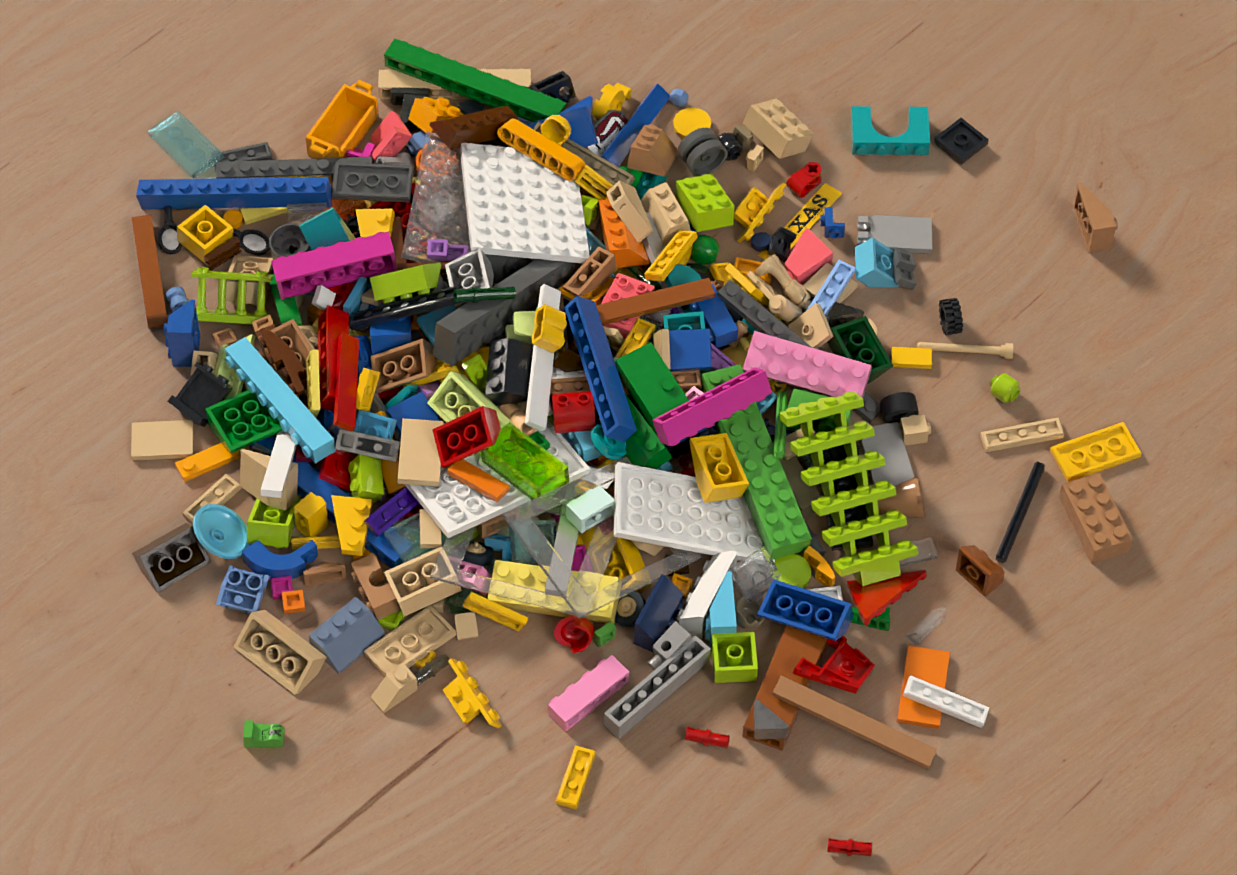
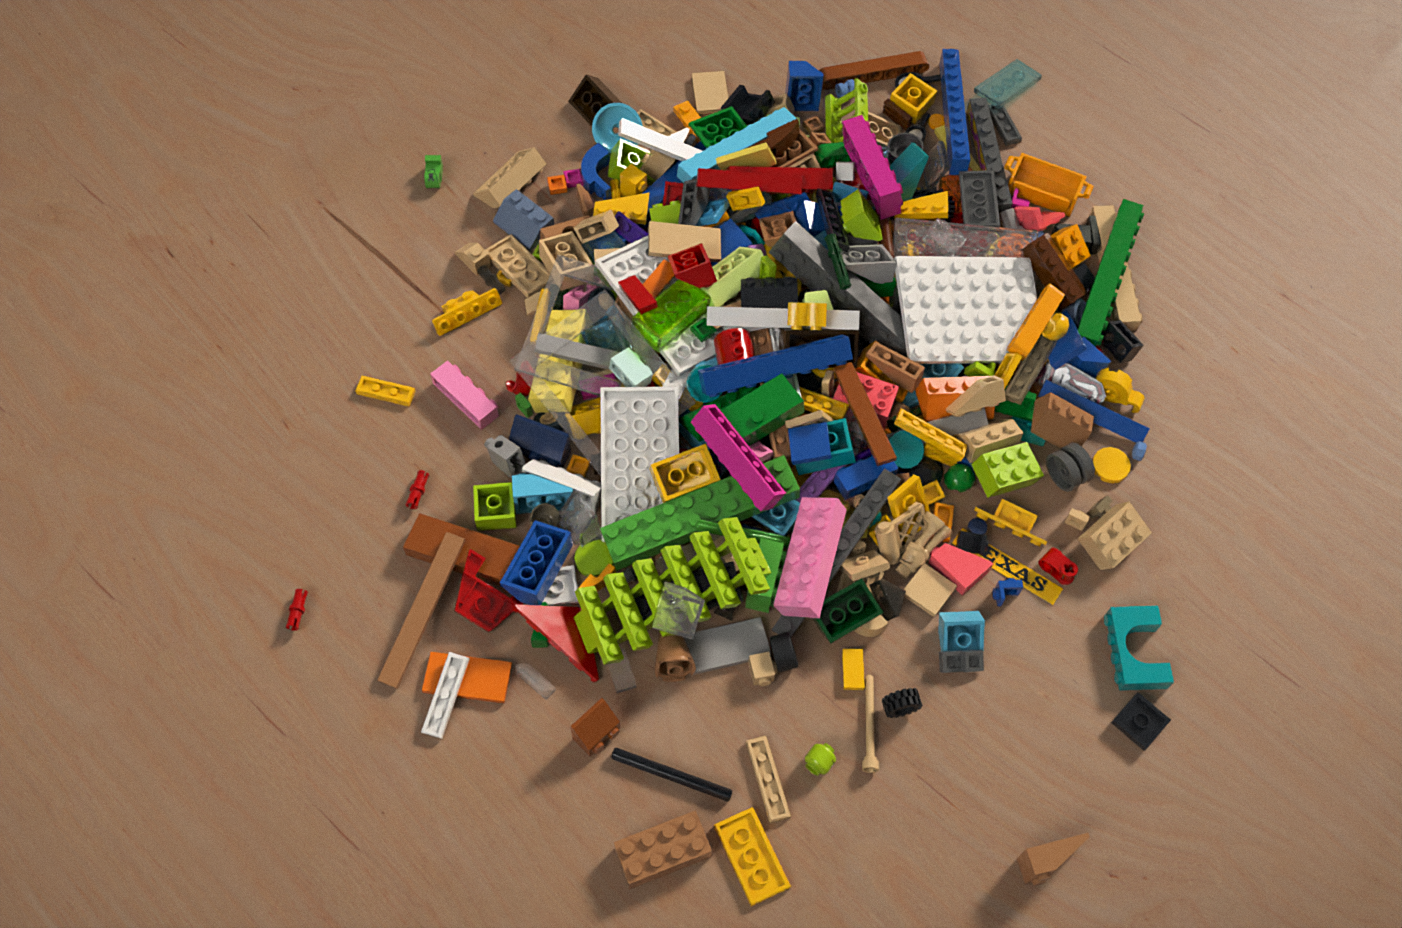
camera: 85 degrees right, 5 degrees up
(242, 590) = (567, 150): medium blue slope -> none
(386, 542) = (596, 226): none -> tan brick
(441, 251) = (903, 245): medium lavender slope -> none
(504, 487) = (638, 294): none -> red tile
(657, 687) = (464, 443): light grey brick -> none
(732, 146) = (1086, 495): black piece -> none
(767, 724) = (415, 527): flat silver slope -> none
(833, 286) = (919, 587): light blue tile -> none
(875, 471) = (678, 611): none -> clear slope
(898, 232) = (1007, 656): light grey tile -> none

